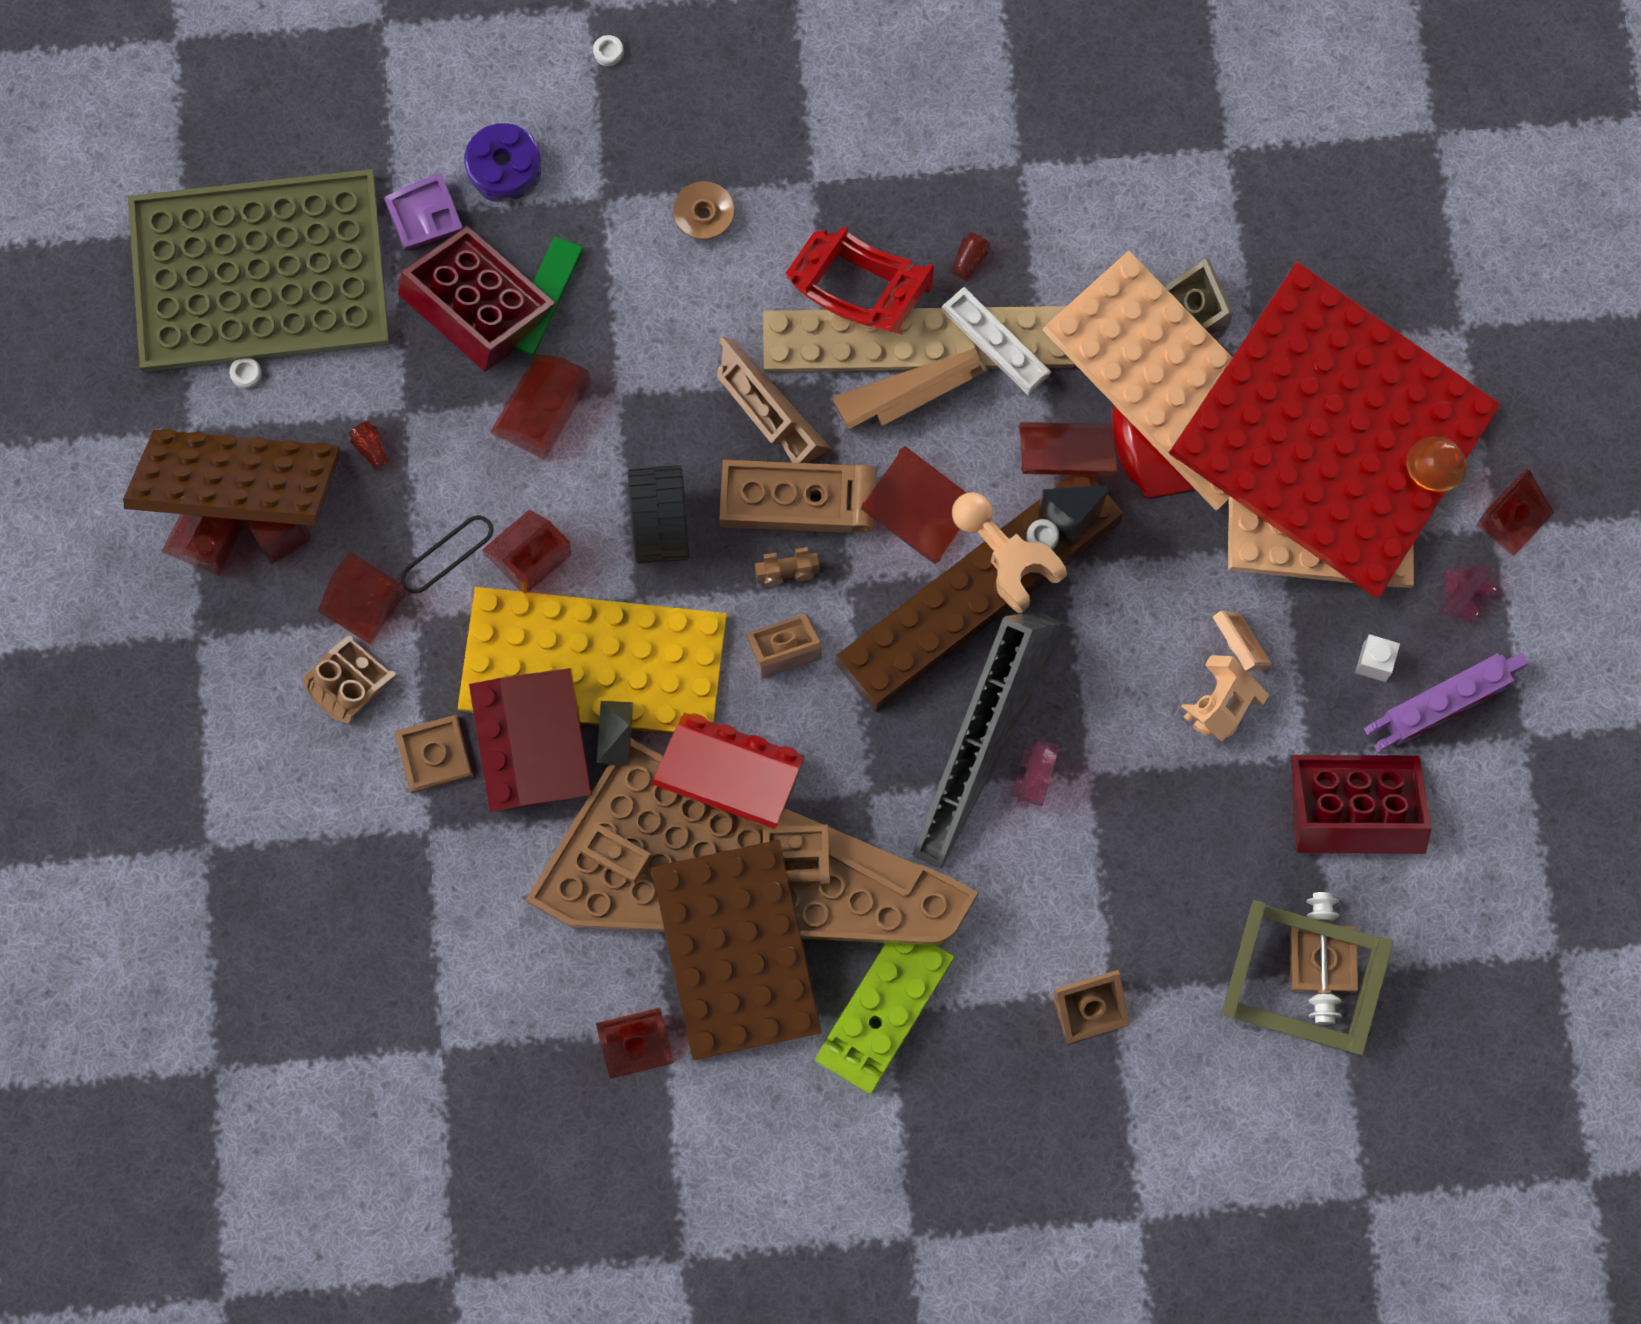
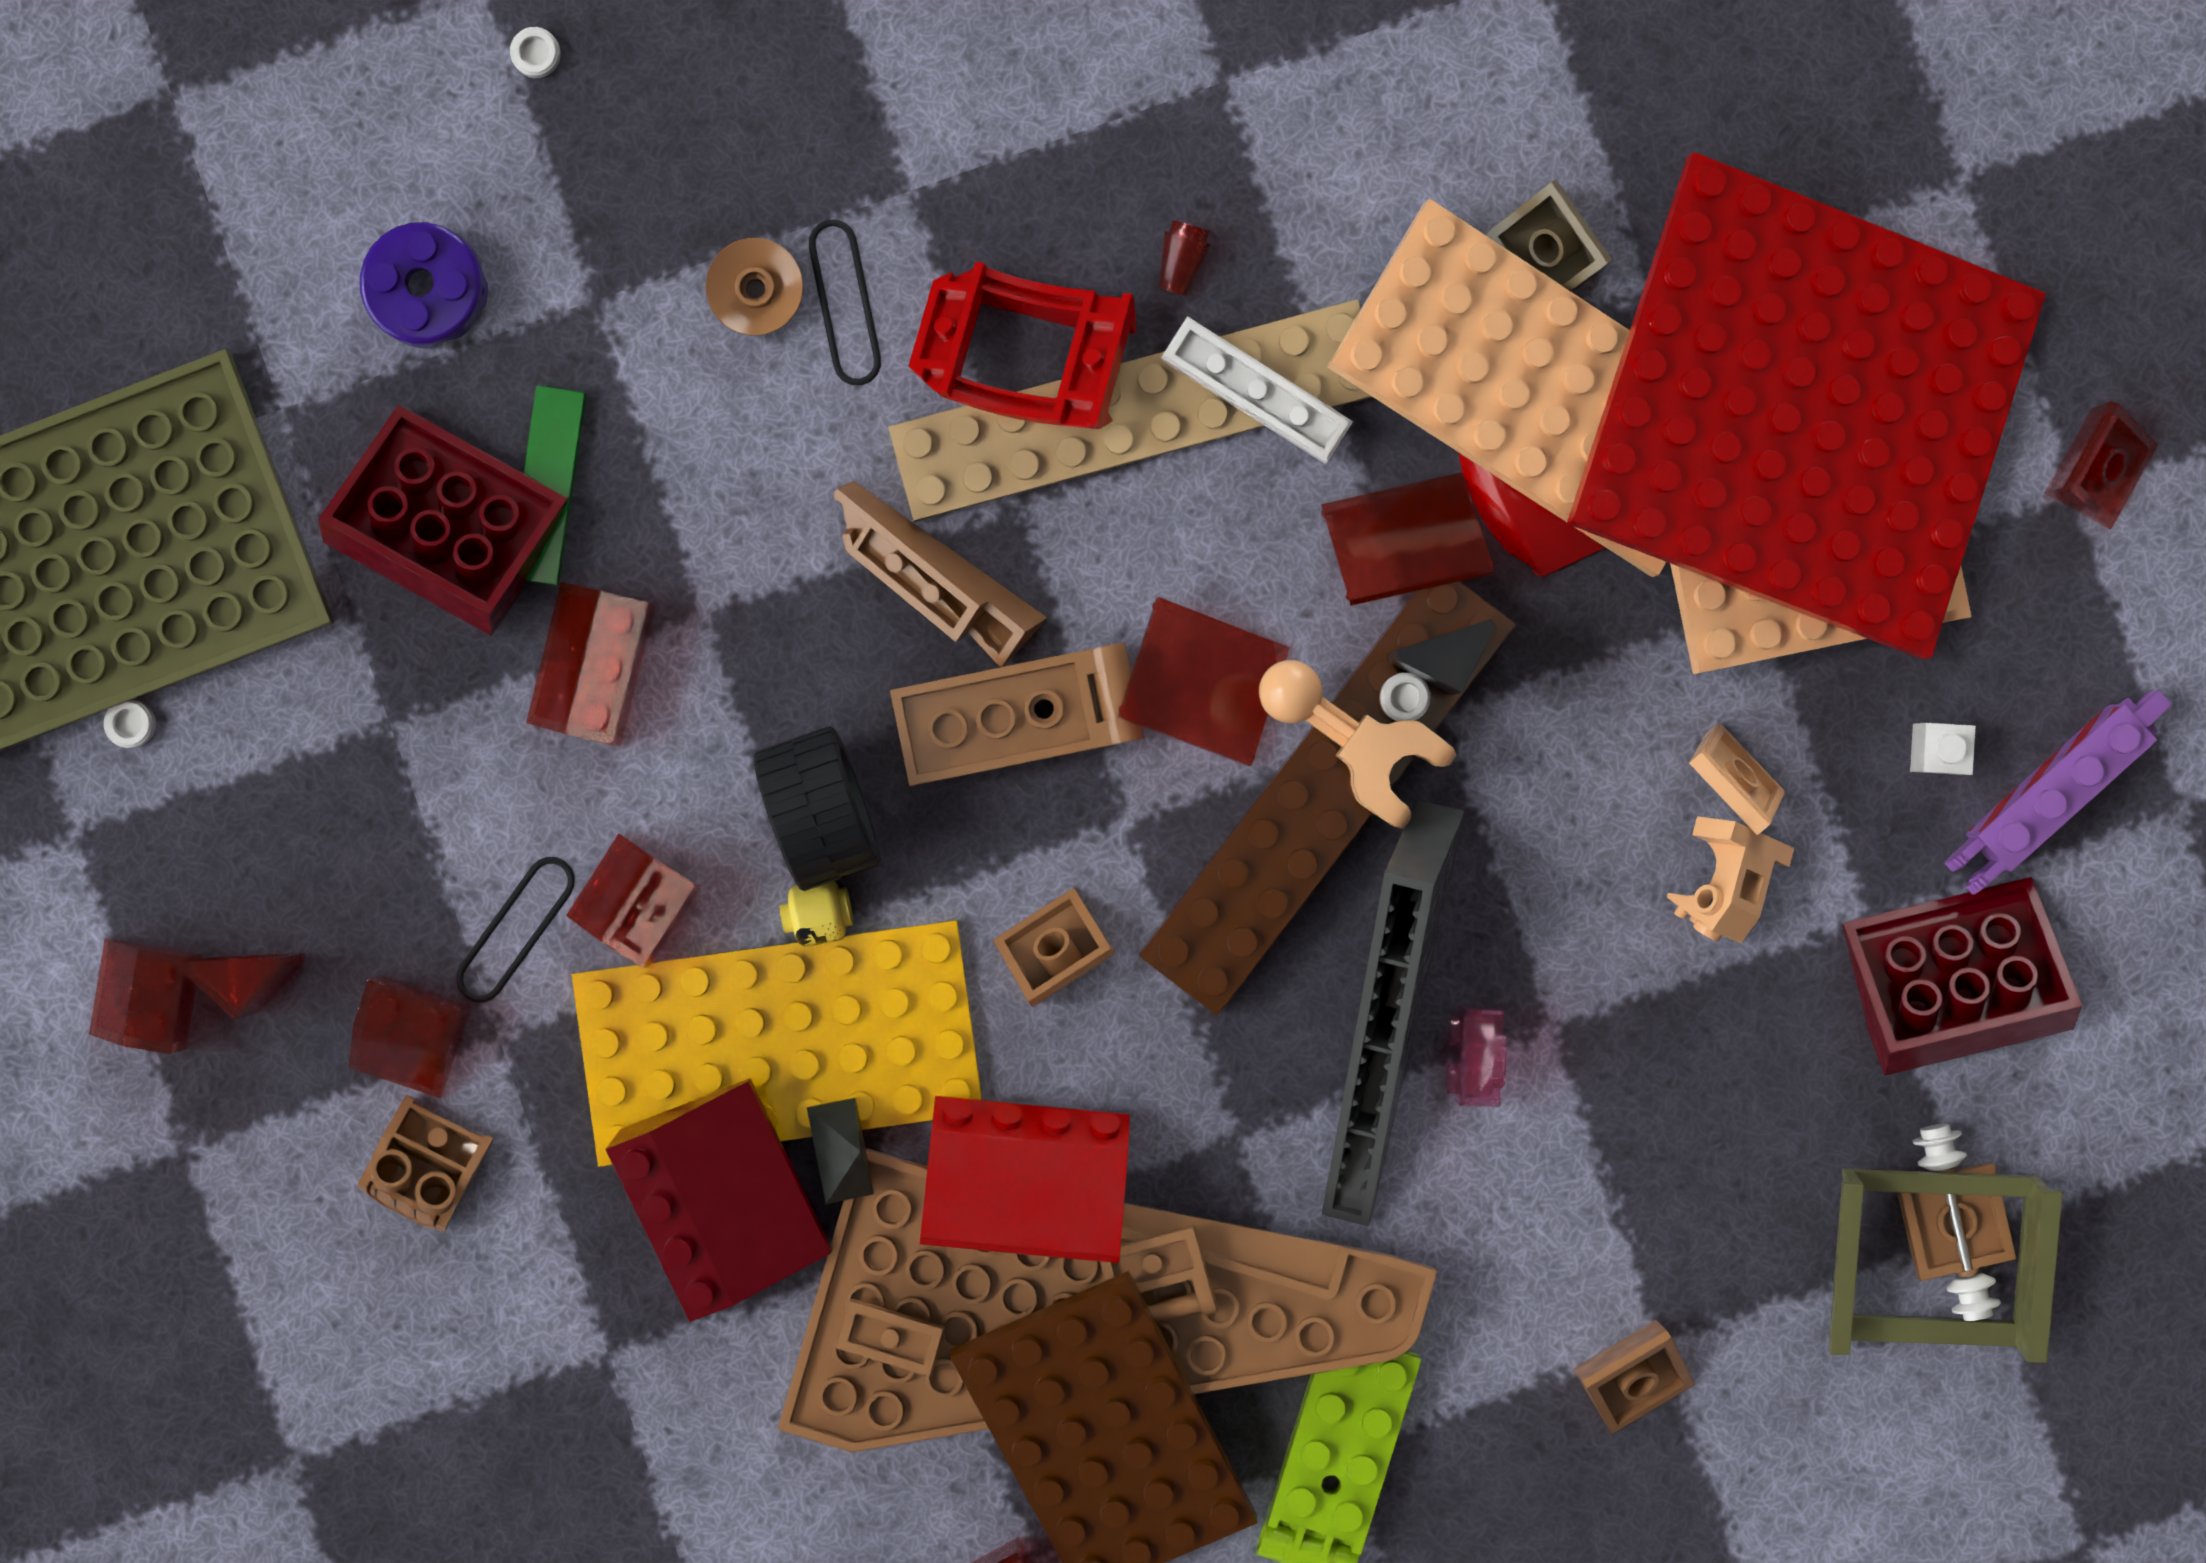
camera: 10 degrees left, 15 degrees up
(232, 477) = (158, 912): reddish brown plate -> none
(369, 443) = (350, 792): clear red cone -> none
(423, 212) = (323, 399): medium lavender plate -> none
(433, 753) = (582, 1240): medium nougat tile -> none
(639, 586) = (817, 914): none -> light yellow head
(768, 239) = (824, 305): none -> black piece
(773, 571) = (1010, 841): medium nougat plate -> none
(907, 391) = (1142, 504): medium nougat wedge -> none
(1436, 464) = (1973, 427): clear orange hat -> none
(1461, 588) = (2049, 607): clear pink hips -> none

